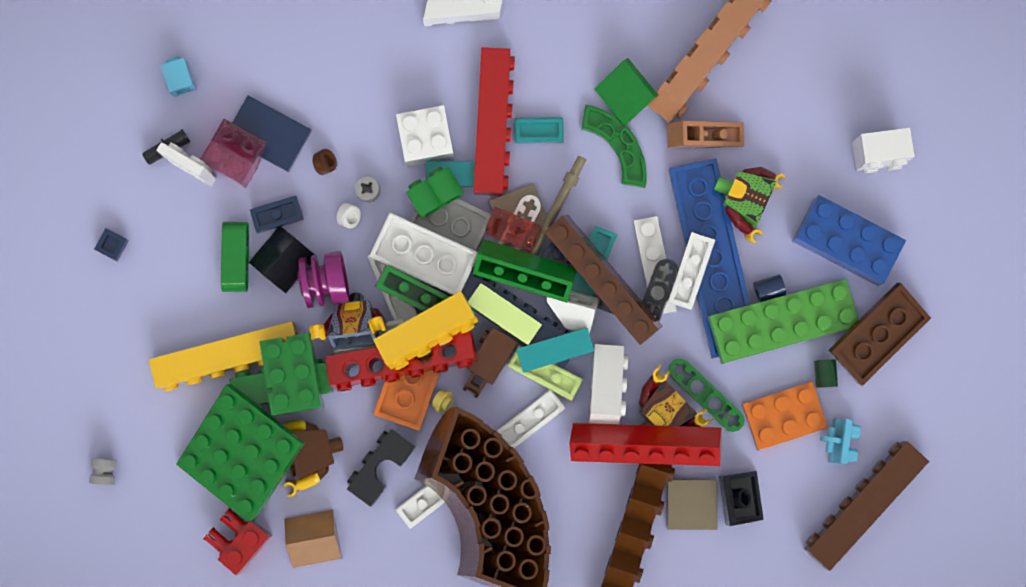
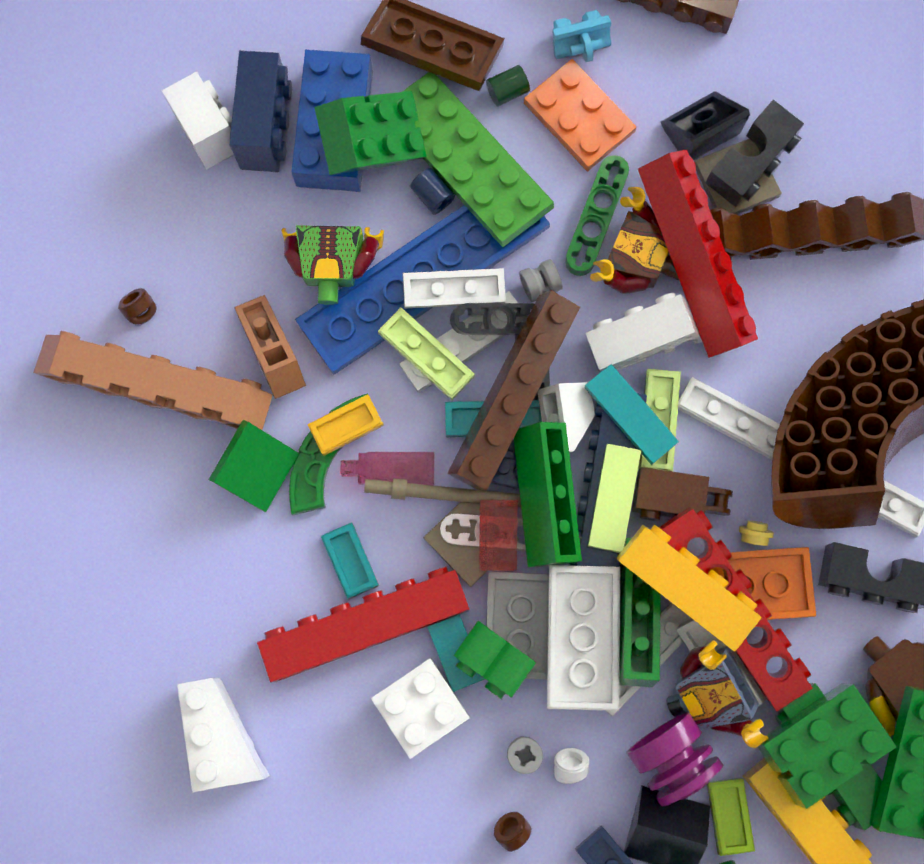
camera: 110 degrees left, 5 degrees down
(273, 303) = (730, 816): none -> lime tile
(588, 184) = (384, 466): none -> clear pink hinge
(629, 162) = (345, 425): none -> yellow tile
(655, 234) = (426, 353): none -> yellowish green tile
(674, 328) = (540, 280): none -> light grey wheel
(709, 541) = (737, 174): none -> black arch
(770, 58) = (135, 304): none -> reddish brown tile
(822, 257) = (370, 131): none -> green piece
(873, 192) = (260, 111): none -> dark blue brick

